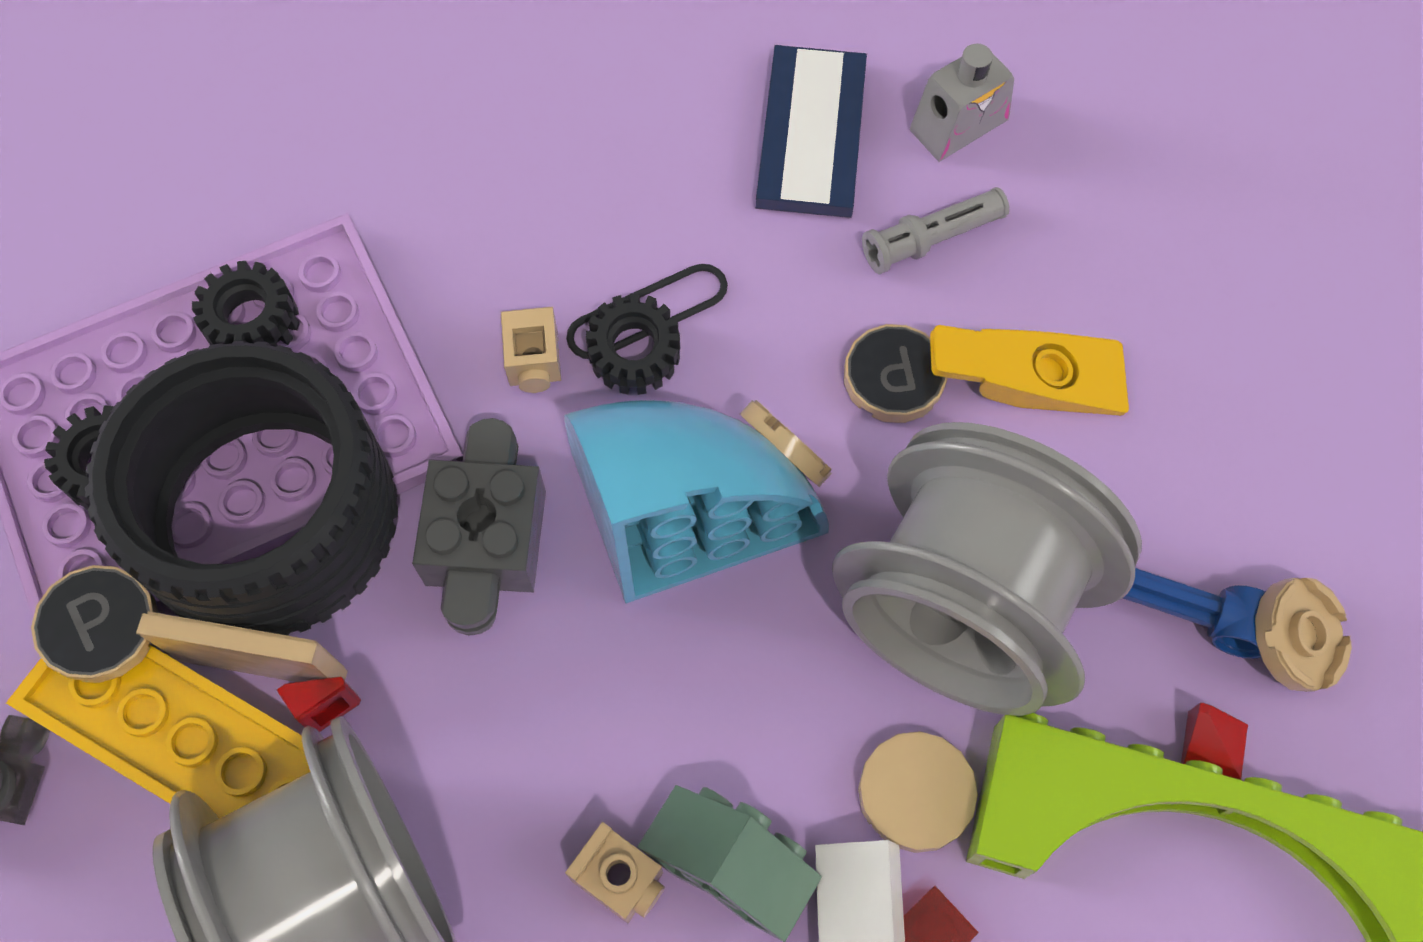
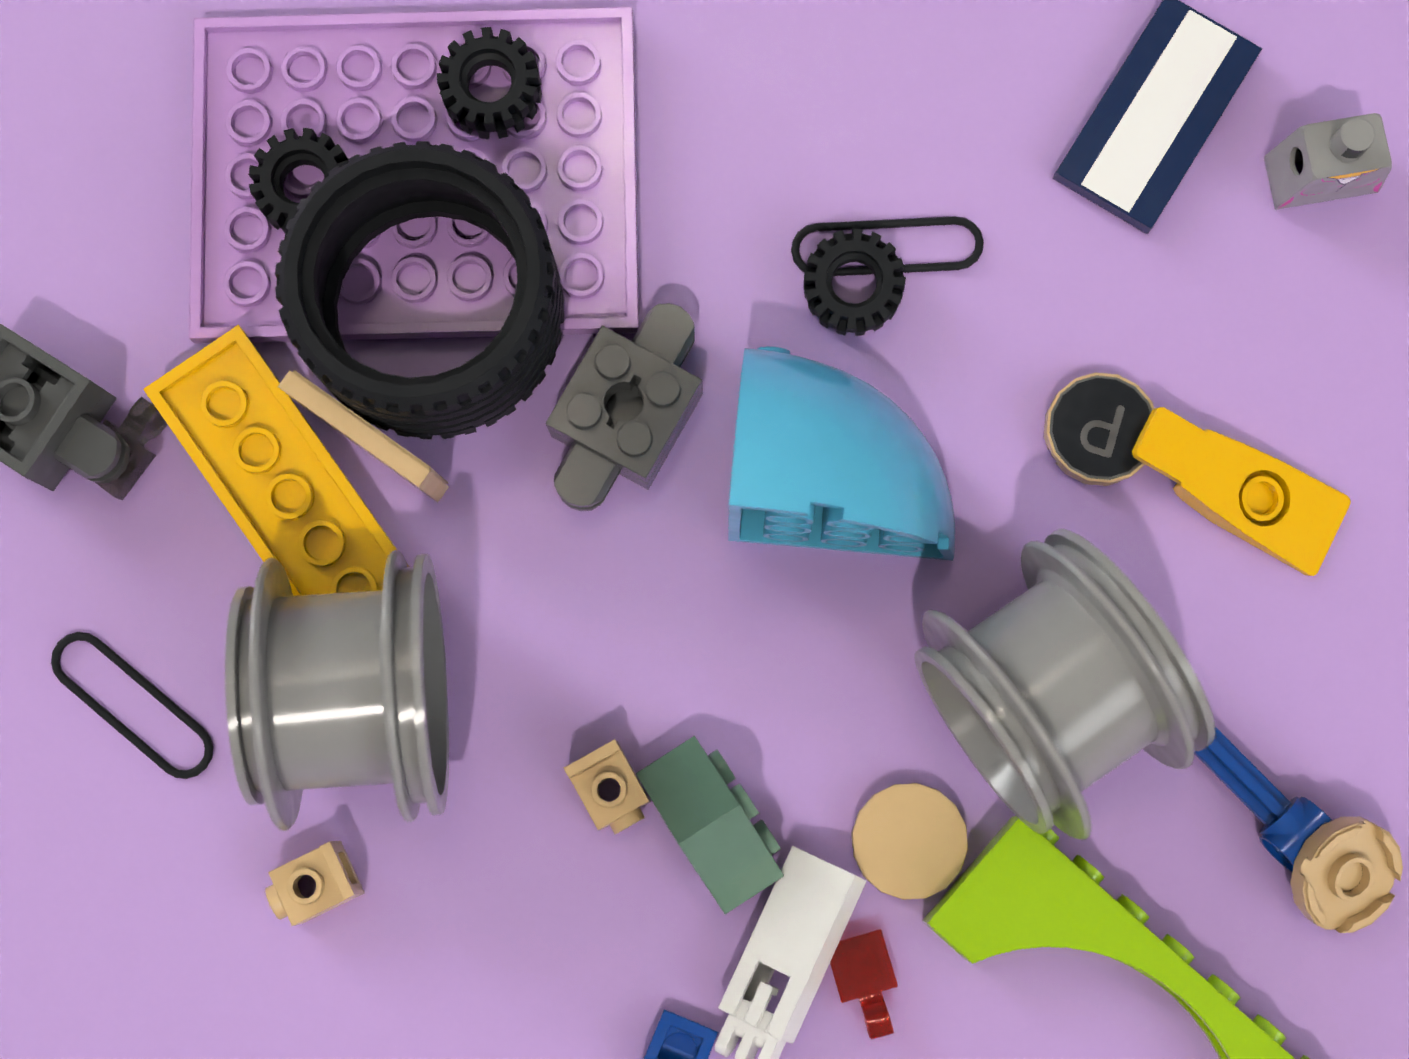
camera: 30 degrees right, 15 degrees up
(90, 624) = (240, 351): black tile -> none
(319, 701) = (411, 510): red slope -> none
(531, 348) = (750, 225): tan brick -> none
(786, 442) = (949, 461): tan tile -> none
(916, 235) = (1197, 293): light grey pin -> none
(1215, 739) = (1207, 928): red slope -> none

